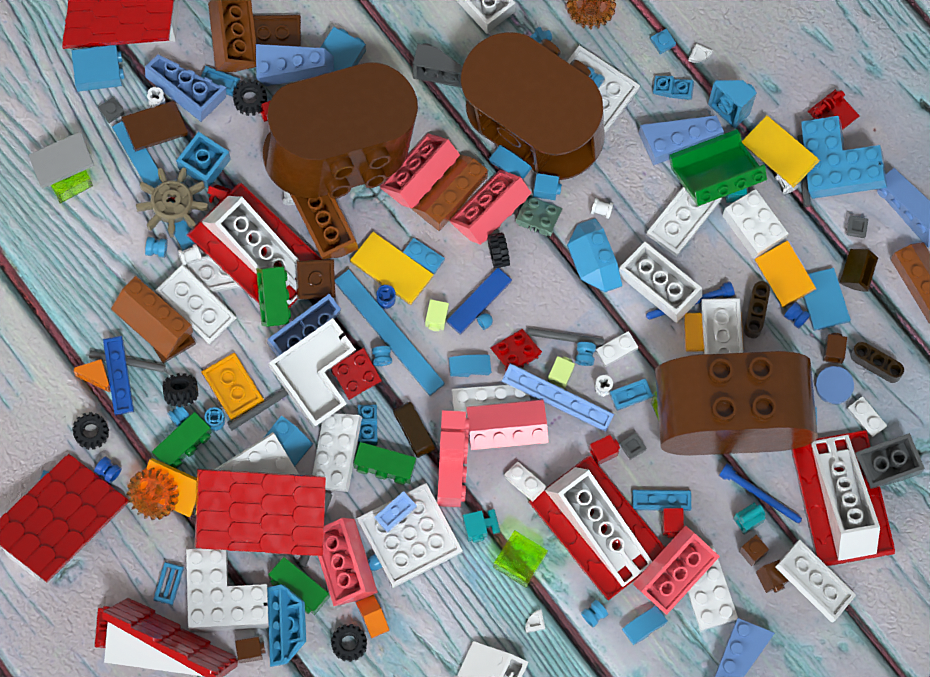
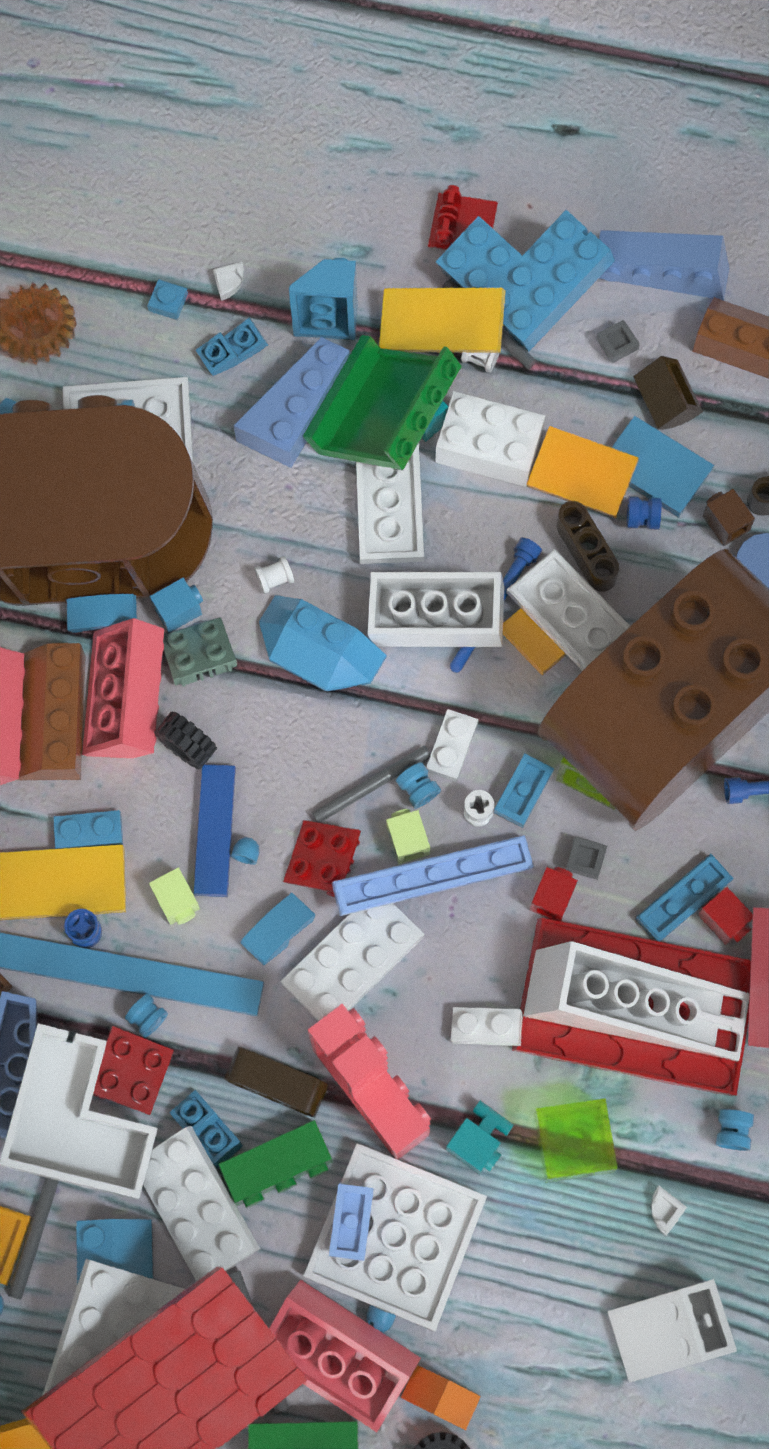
camera: 35 degrees left, 0 degrees up
(507, 424) = (400, 967): coral slope -> none

